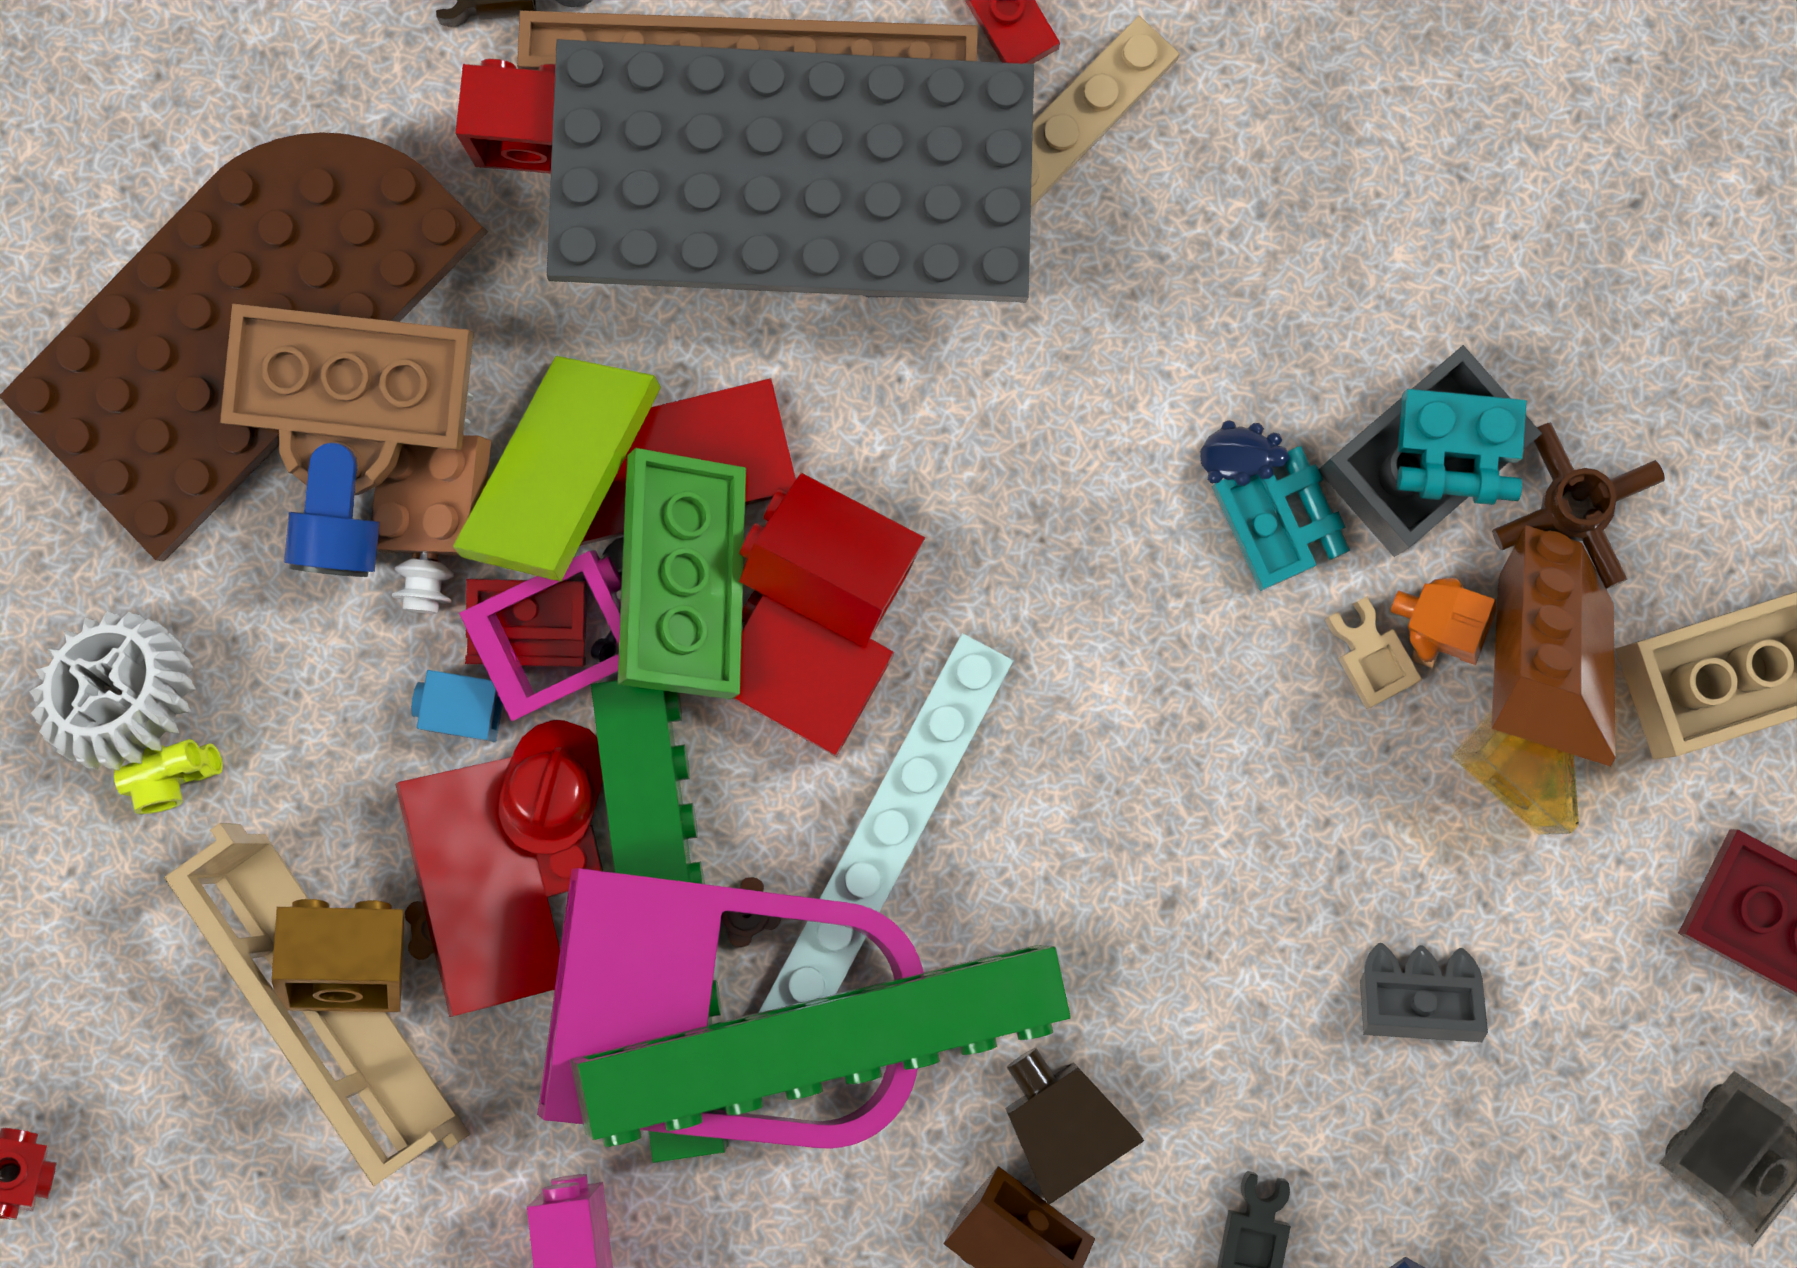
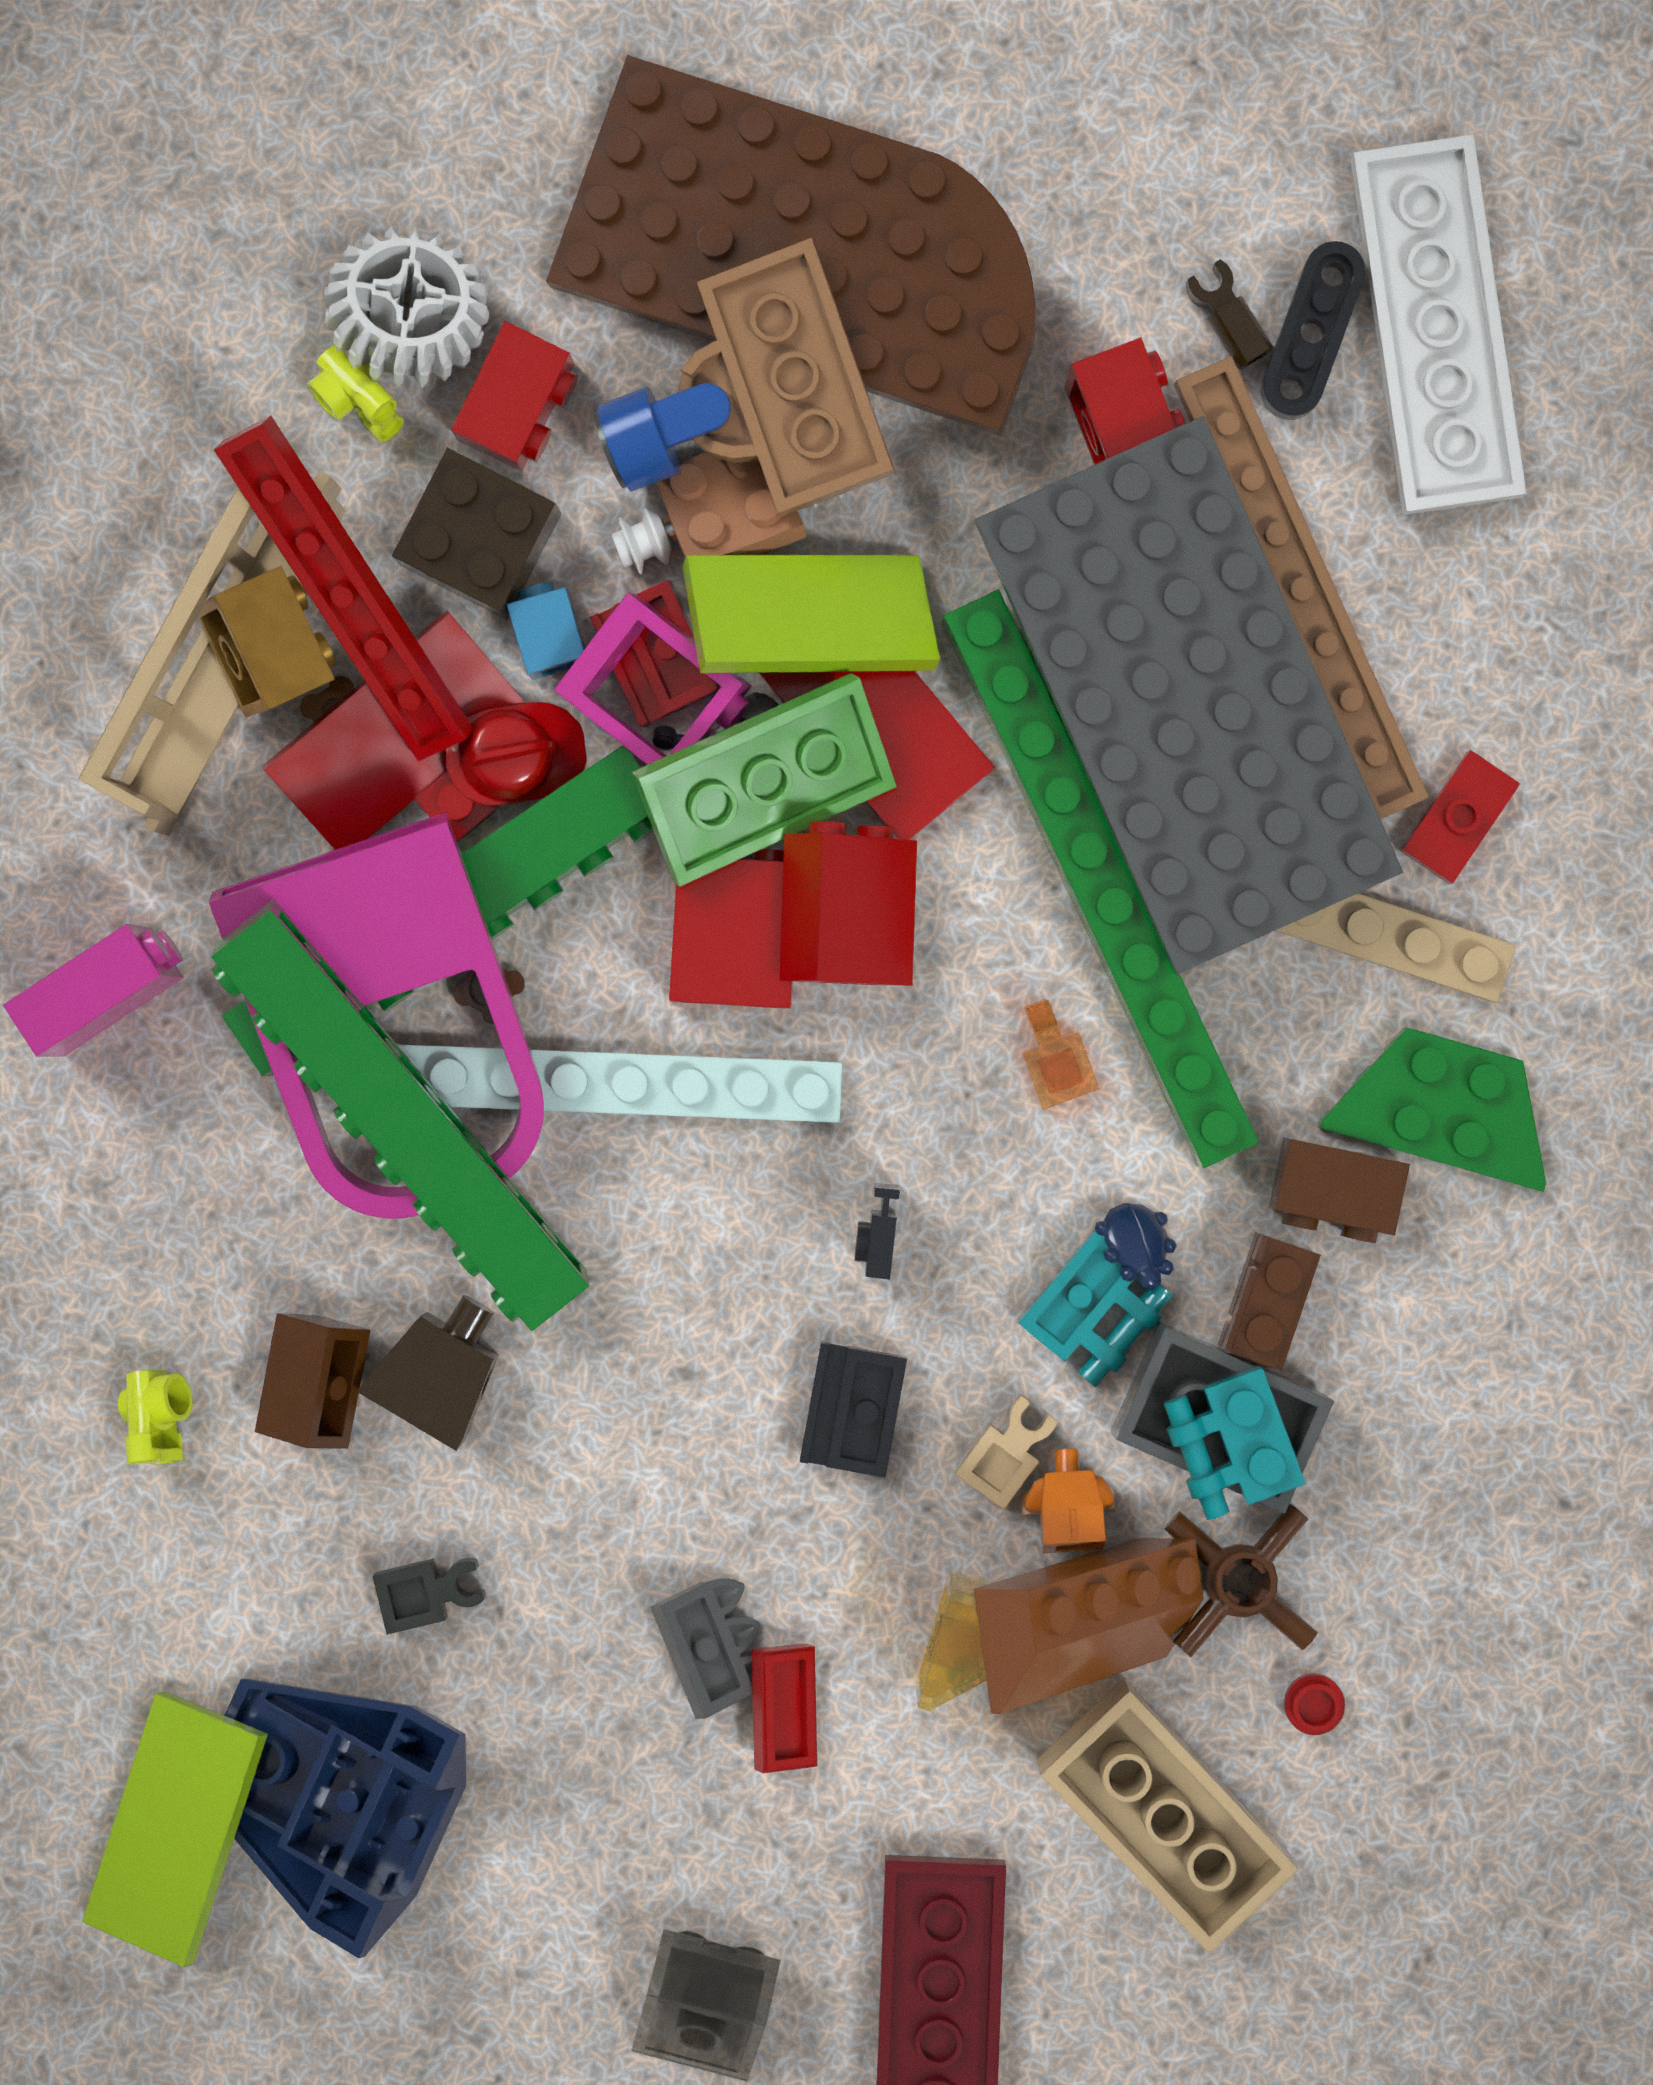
camera: 65 degrees right, 5 degrees up
(241, 635) = (515, 397): none -> red brick
(323, 861) = (343, 588): none -> red plate
(342, 726) = (476, 533): none -> dark brown brick
(911, 334) = (1098, 879): none -> green brick
(1054, 448) = (1058, 1063): none -> clear orange plate
(1132, 671) = (877, 1238): none -> black plate
(1248, 140) = (1445, 1107): none -> green wing
(1271, 770) = (853, 1409): none -> black plate
(1274, 260) = (1338, 1188): none -> reddish brown brick
(1345, 364) = (1268, 1301): none -> reddish brown brick
(1507, 959) = (784, 1708): none -> red tile
(1713, 495) = (1314, 1704): none -> red plate

